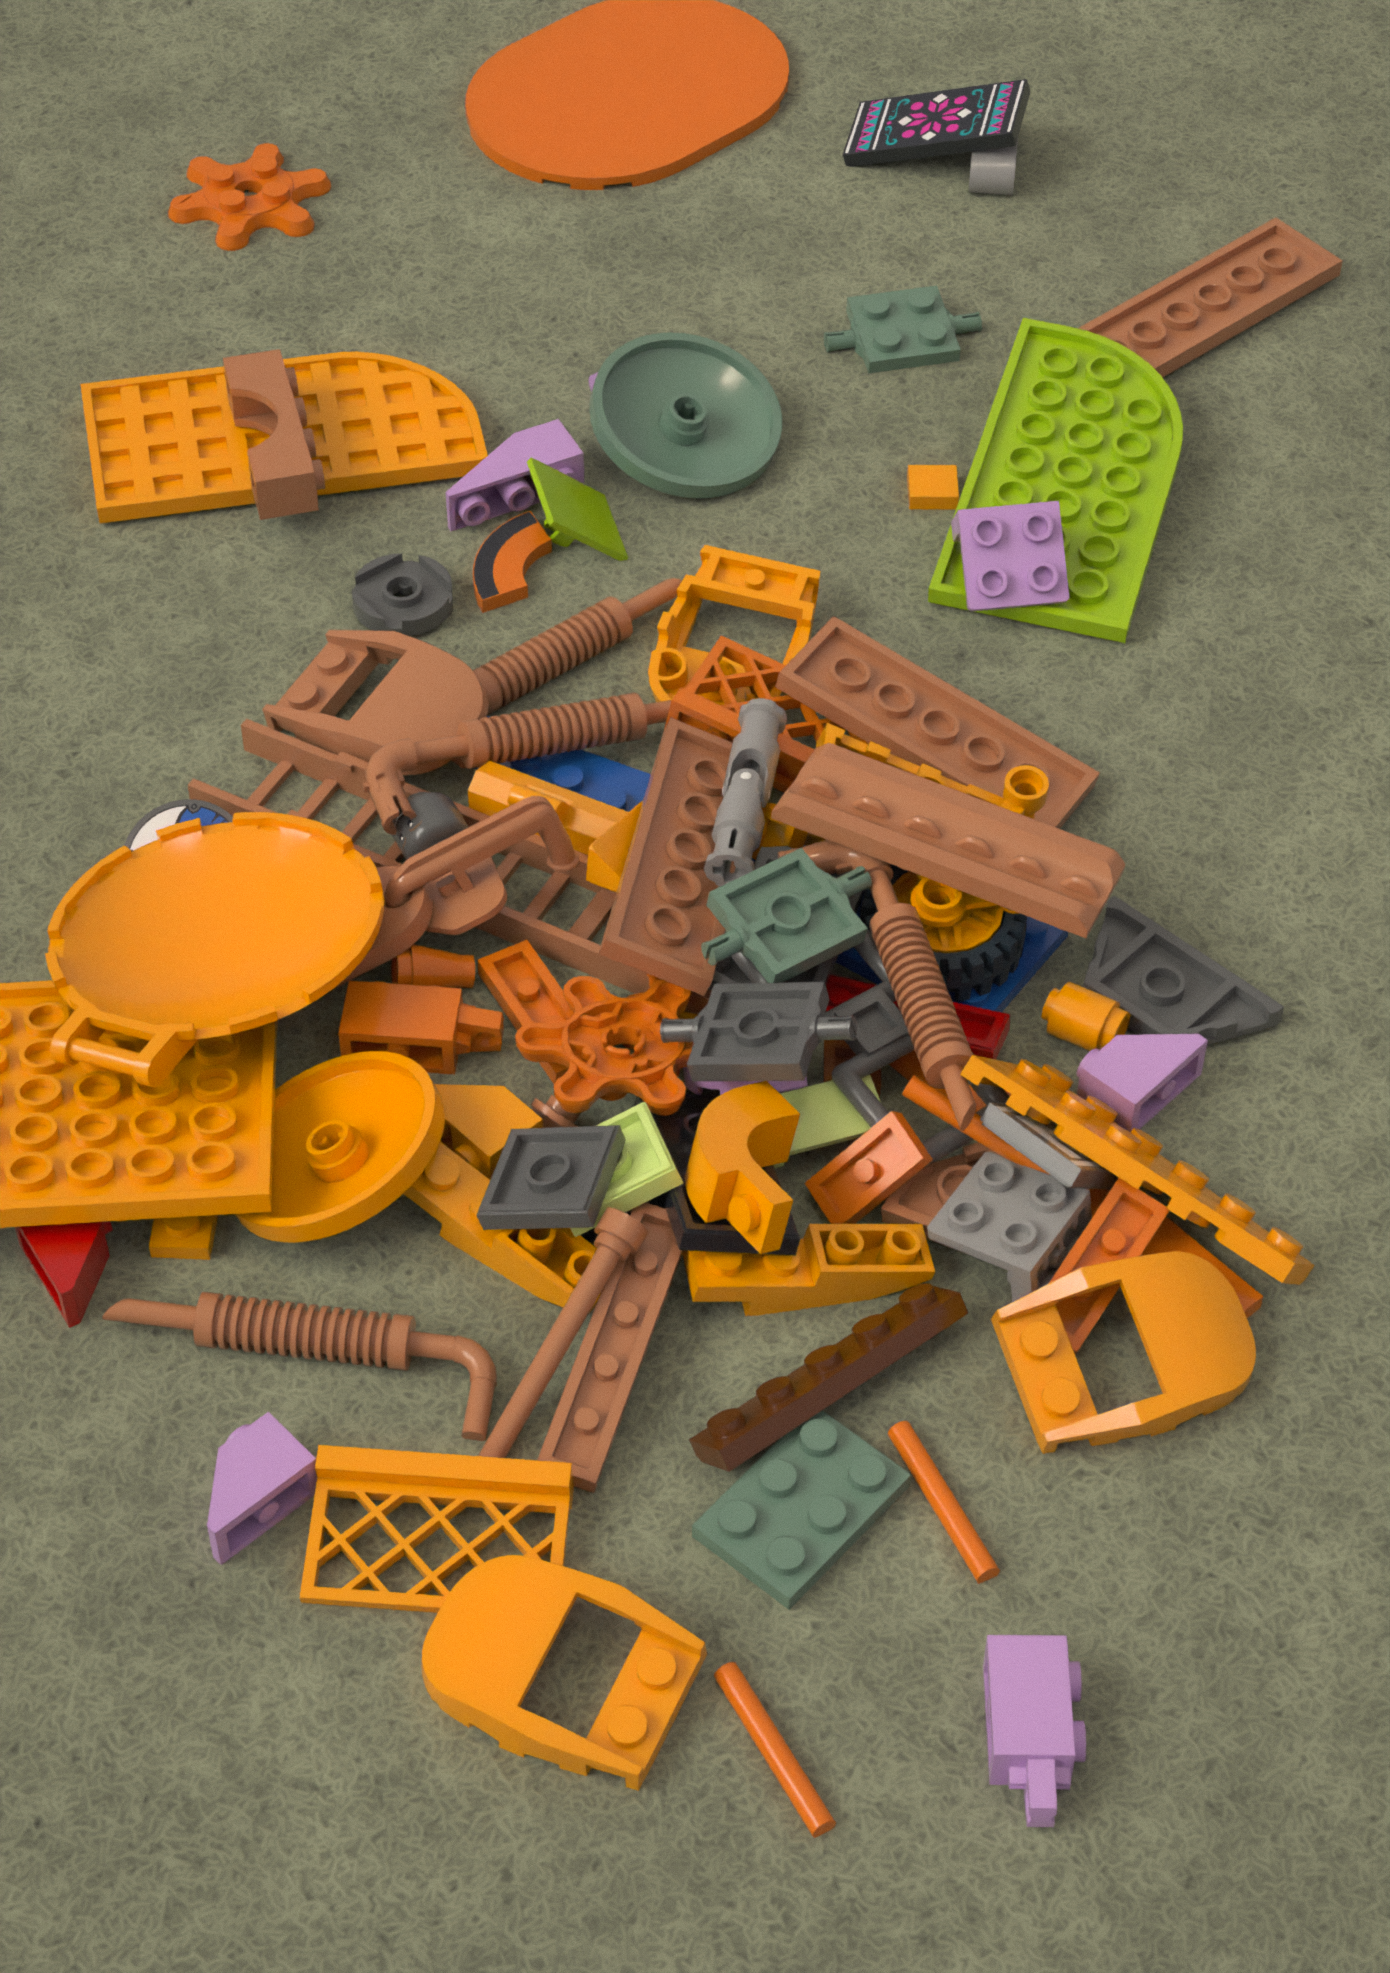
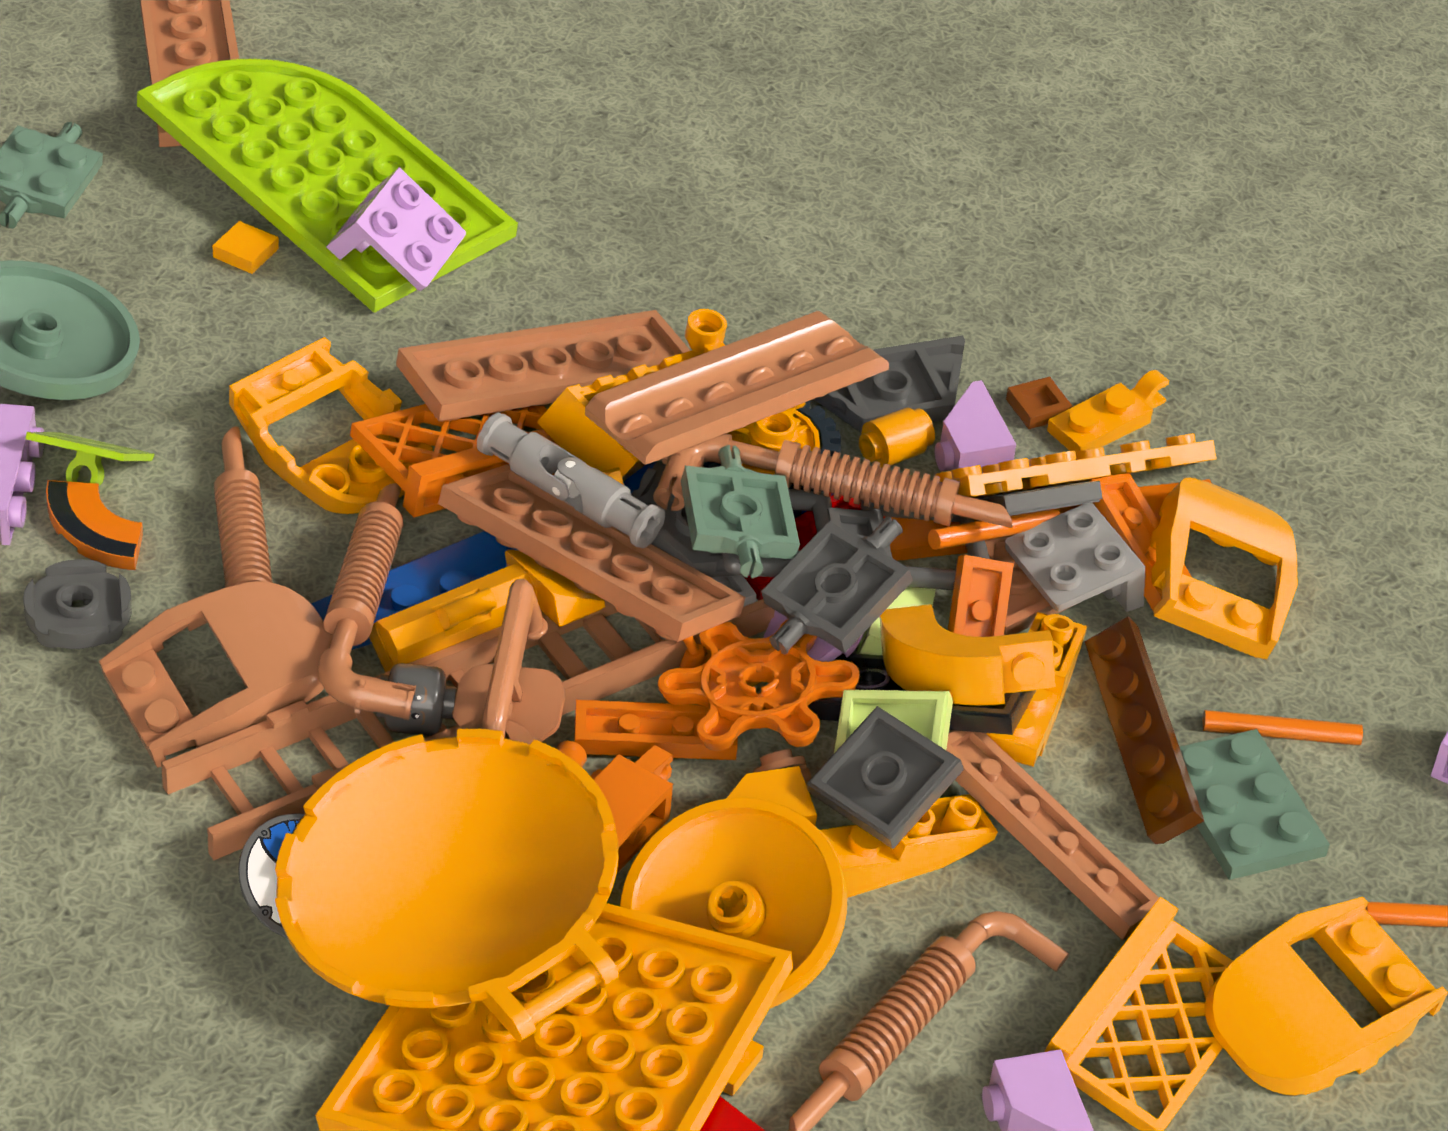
camera: 65 degrees left, 5 degrees down
(616, 1239) = (979, 770): nougat piece -> none
(1258, 1113) = (1037, 401): none -> dark orange tile
(1292, 1177) = (1109, 414): none -> light orange plate

